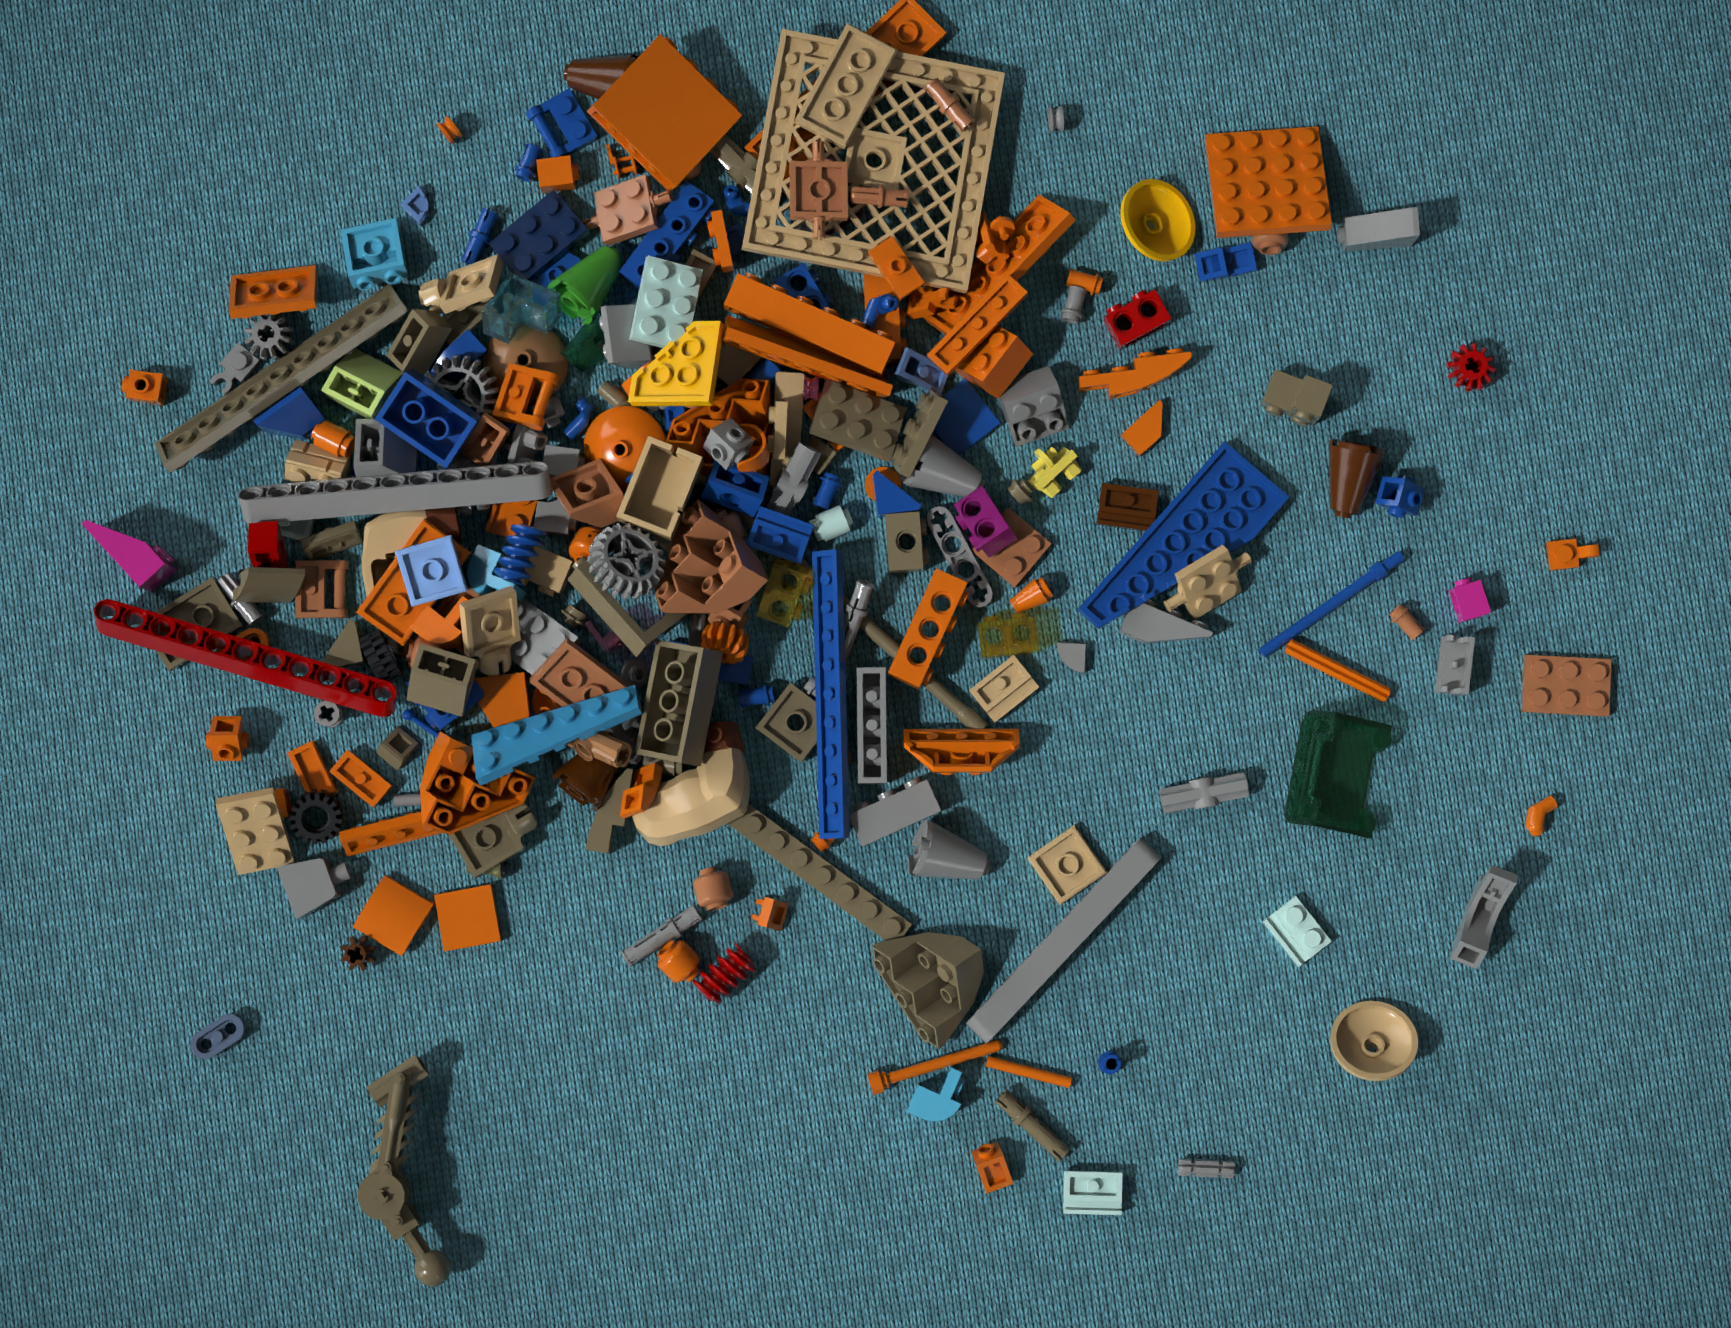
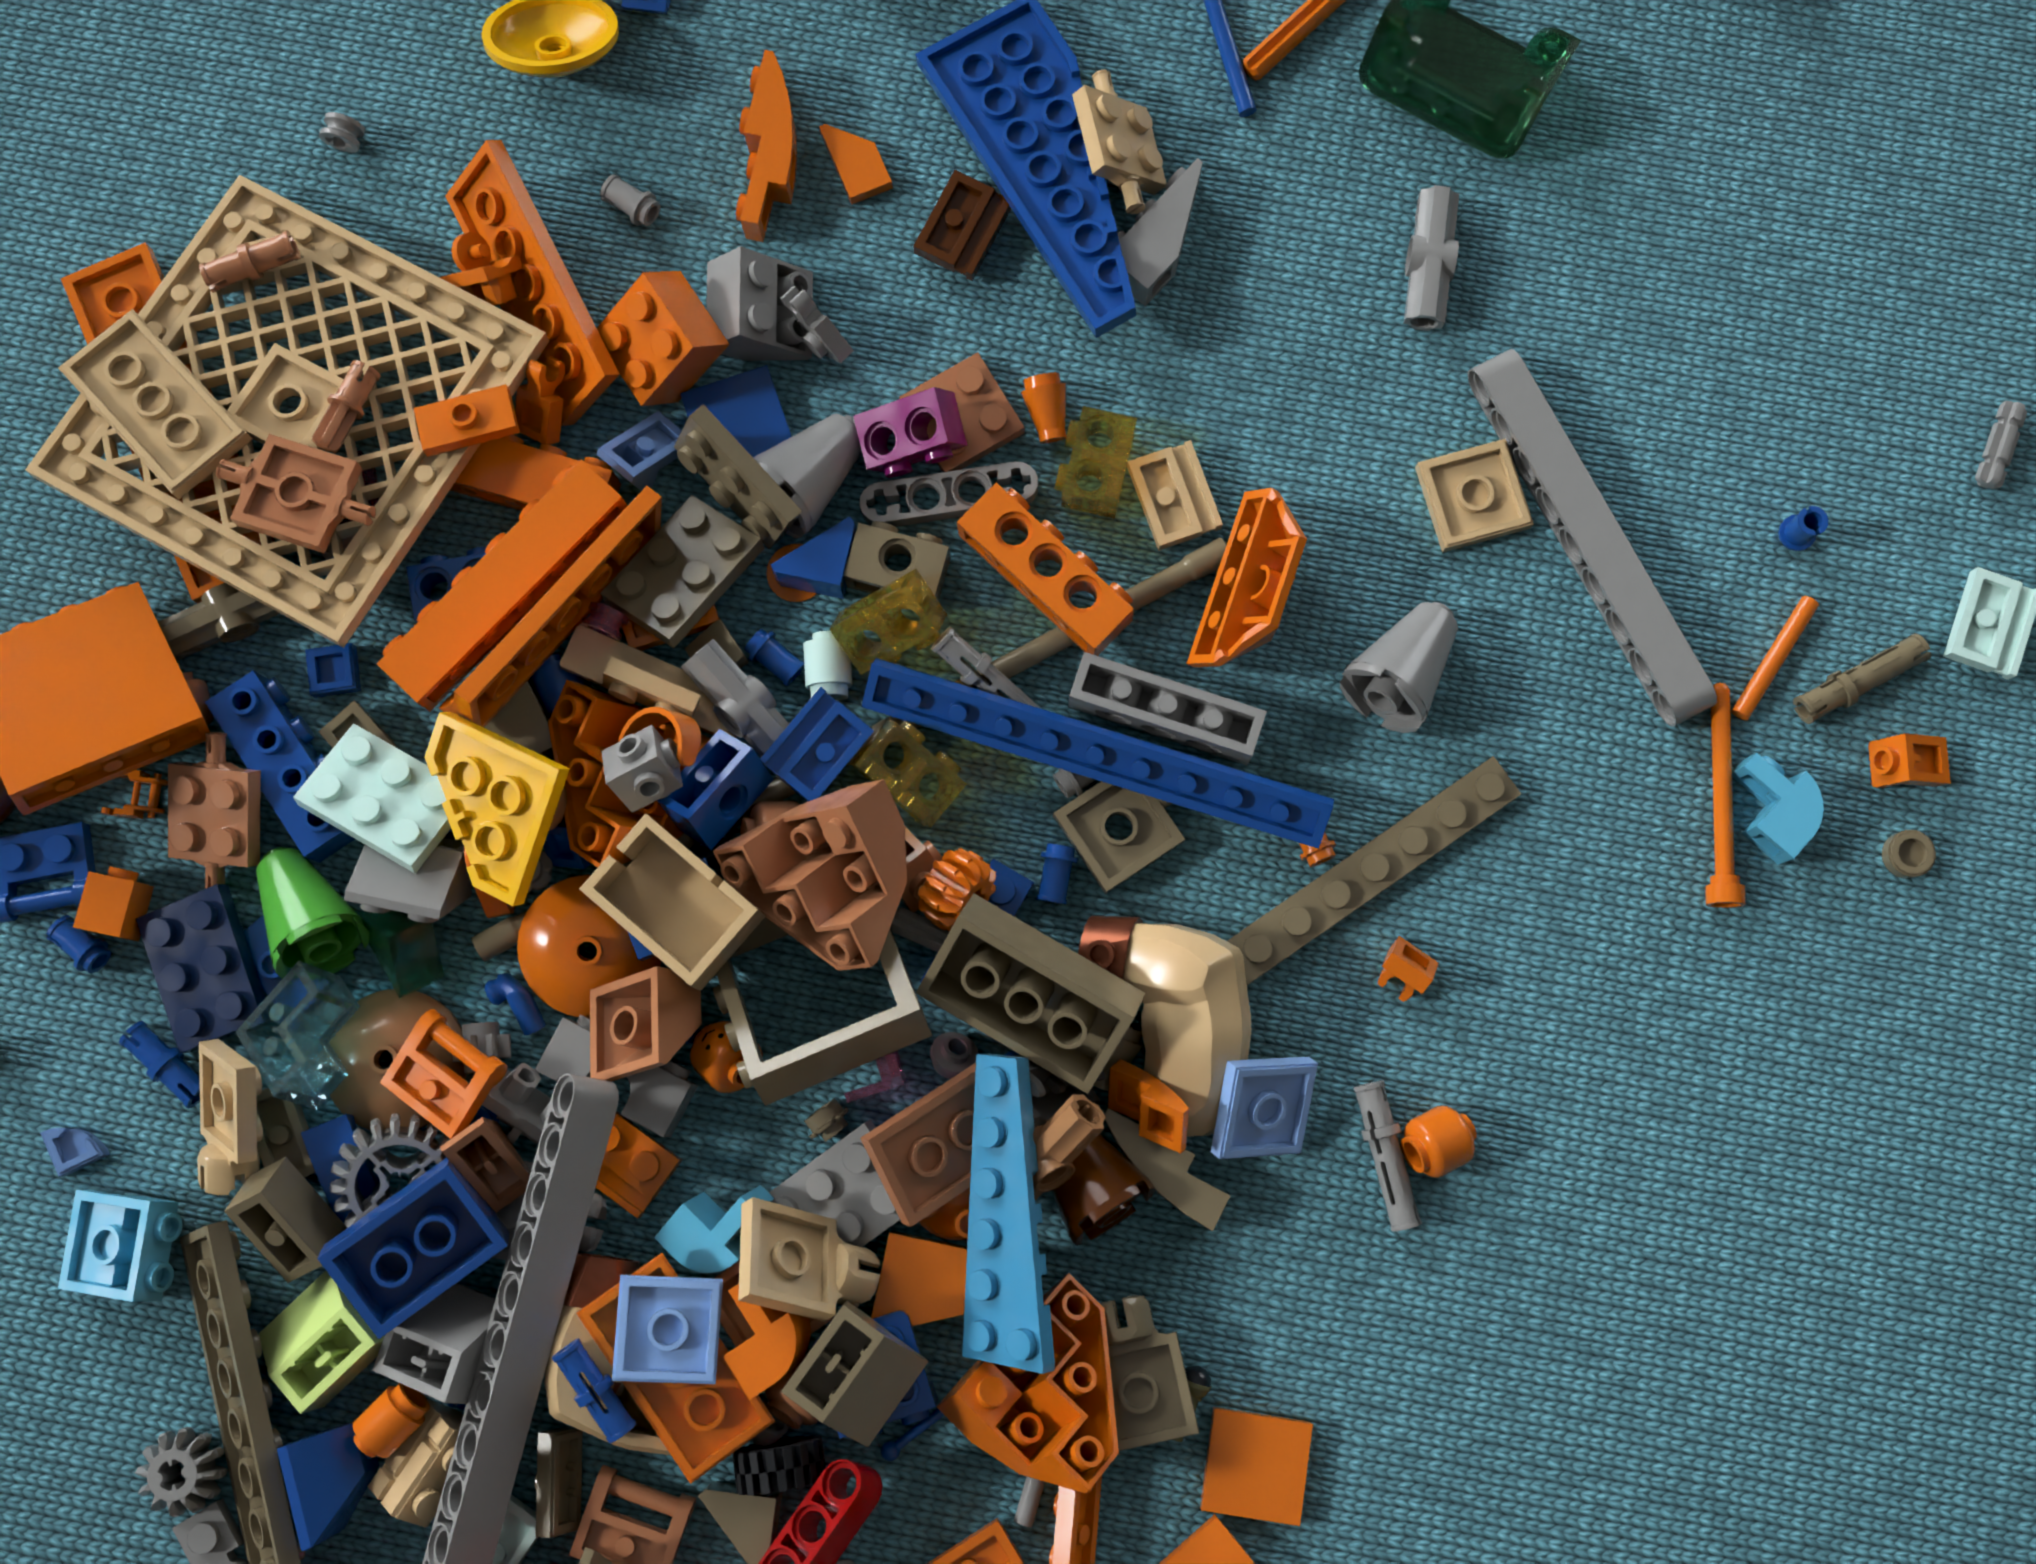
camera: 70 degrees left, 5 degrees down
(273, 292) = (111, 1439): orange plate -> none
(374, 558) = (612, 1421): none -> blue pin
(397, 748) = (938, 1488): dark tan slope -> none
(519, 554) = (694, 1172): blue piece -> none
(549, 573) = (730, 1149): tan brick -> none
(622, 570) = (782, 1006): light grey gear -> none
(662, 855) = (1263, 1107): none -> light blue tile
(713, 889) = (1341, 1046): nougat head -> none
(717, 229) = (302, 680): orange plate -> none
(725, 974) = (1484, 1073): red piece -> none
(735, 201) = (274, 644): blue arm -> none
(866, 550) = (883, 615): none -> clear yellow brick
(878, 306) = (518, 471): blue arm -> none
(893, 811) = (1310, 721): light grey brick -> none
(932, 980) = (1593, 753): dark tan brick -> none
(937, 1183) = (1908, 854): none -> dark tan tile
(977, 324) = (602, 327): orange plate -> none
(1021, 491) = (882, 368): dark tan plate -> none
(1026, 448) = (822, 335): none -> light grey plate
(1049, 466) = (860, 314): light yellow hips -> none
(1072, 655) = (1158, 379): light grey tile -> none
(1087, 281) = (608, 162): orange pin -> none
(1140, 325) = (689, 116): red brick -> none
(1296, 931) = (1679, 199): light aqua plate -> none
(1377, 1027) = (1884, 114): tan dish -> none

